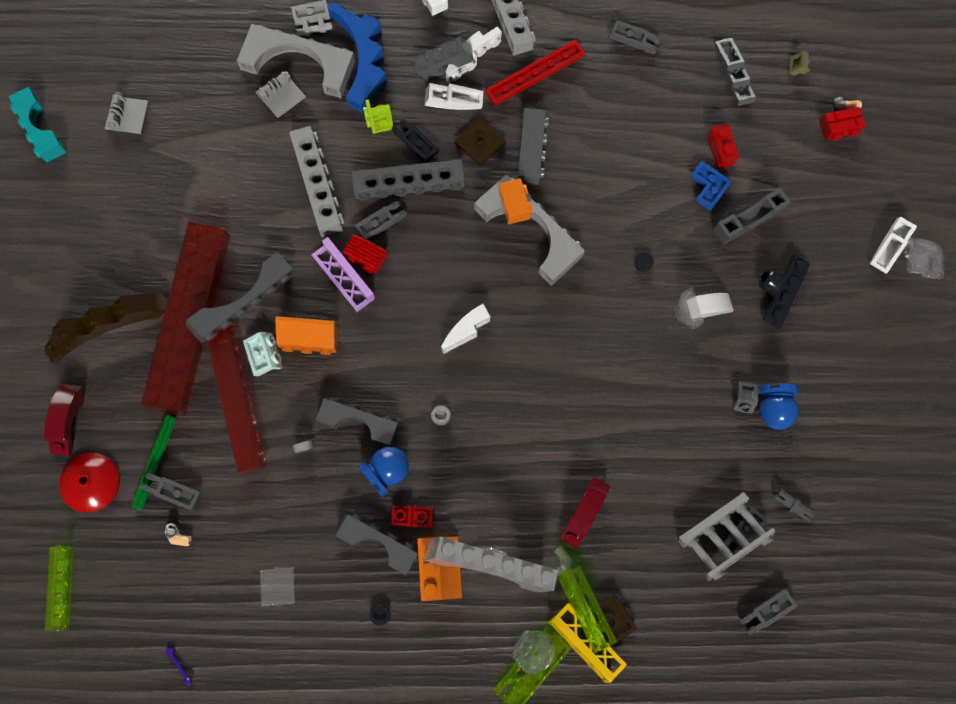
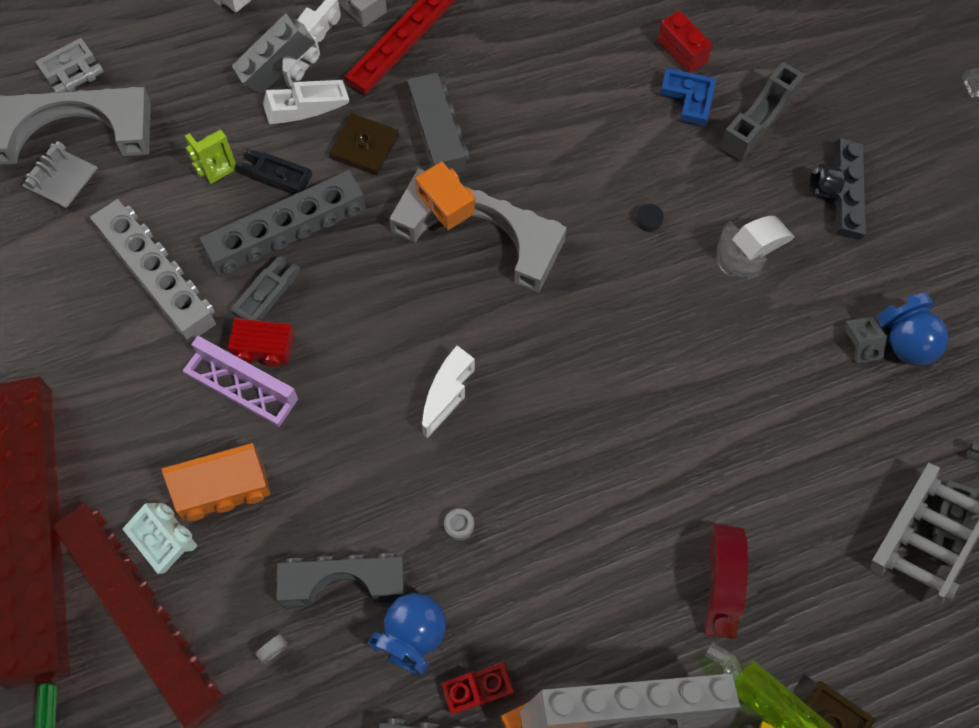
camera: 20 degrees left, 10 degrees down
(210, 320) = (60, 514): dark grey arch -> none
(369, 76) = (151, 63): blue arch -> none
(893, 244) = (951, 85): white slope -> none

